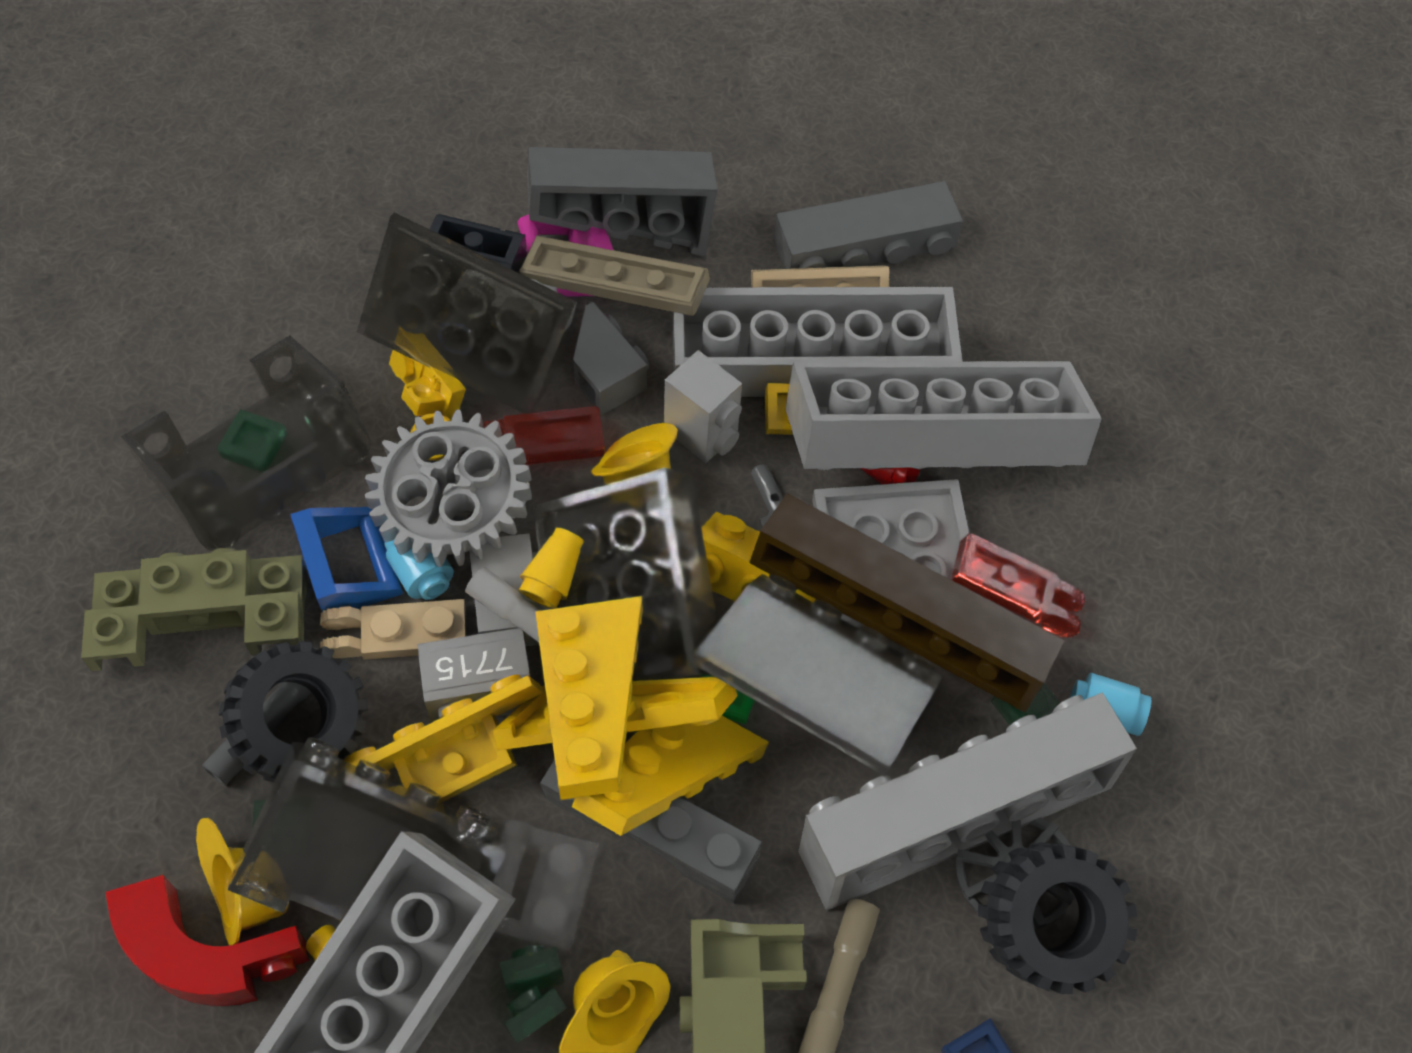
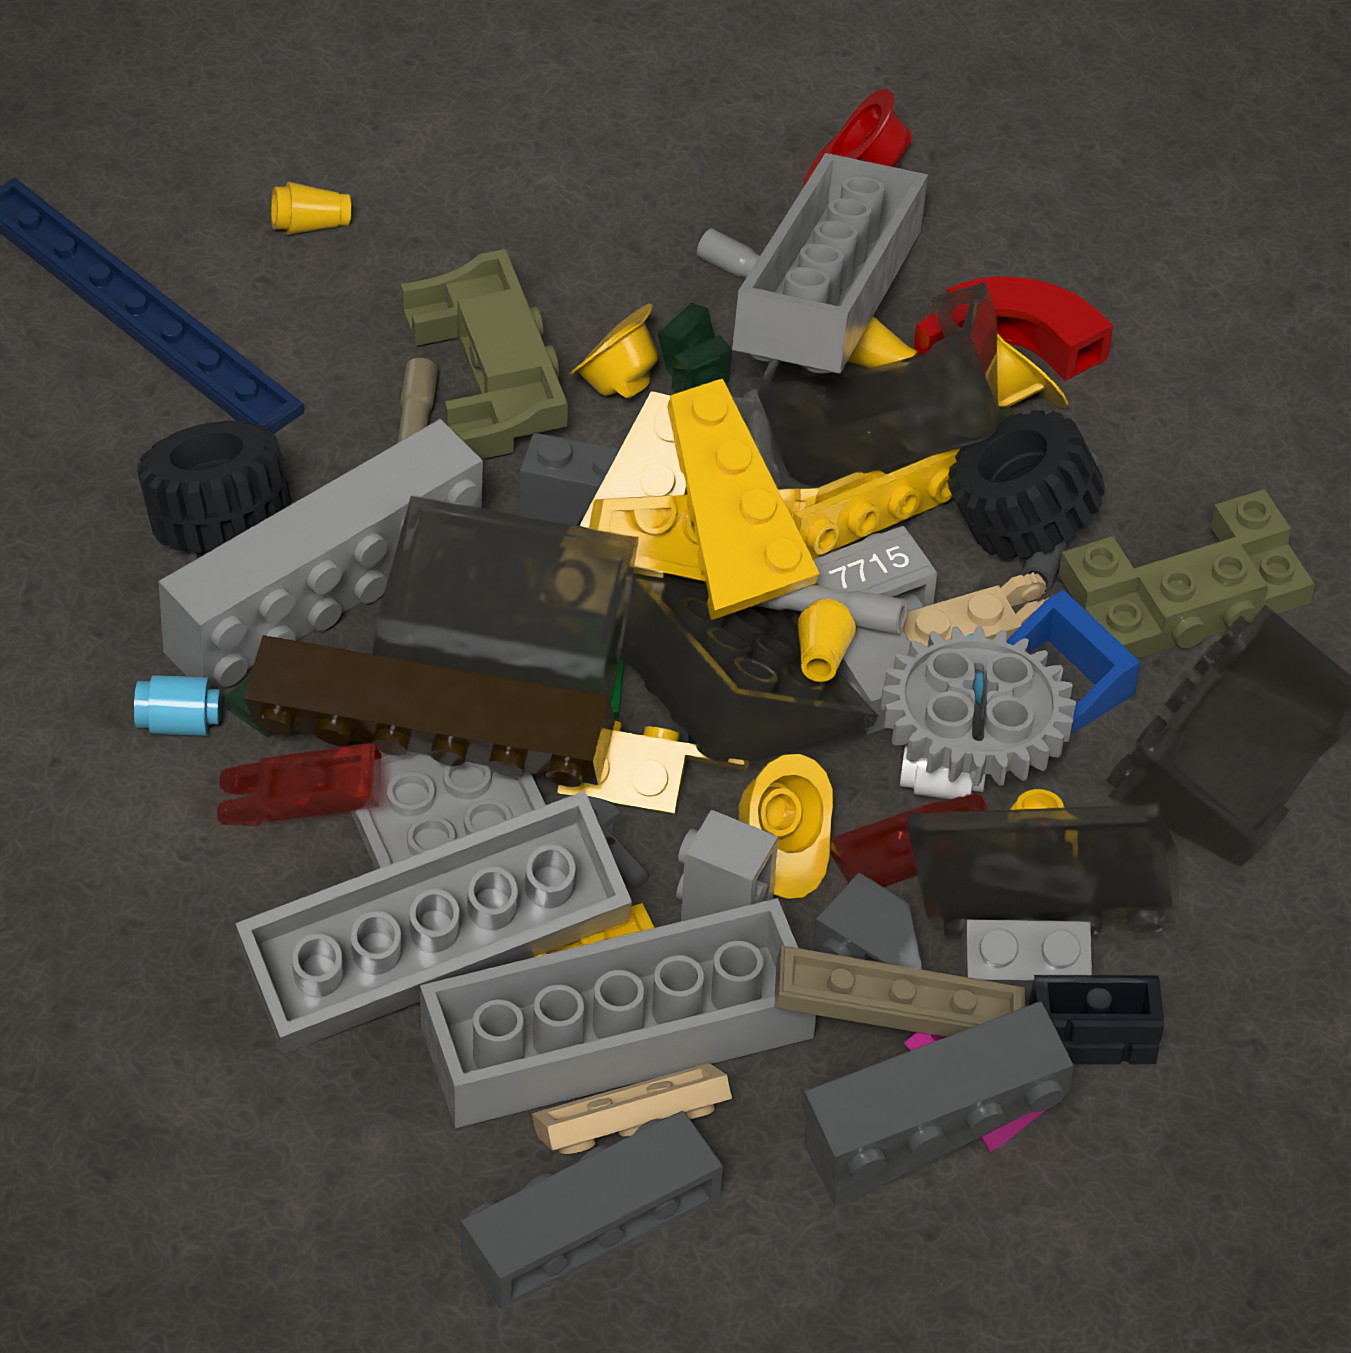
camera: 165 degrees right, 10 degrees down
(252, 441) = (1238, 753): clear green plate -> none

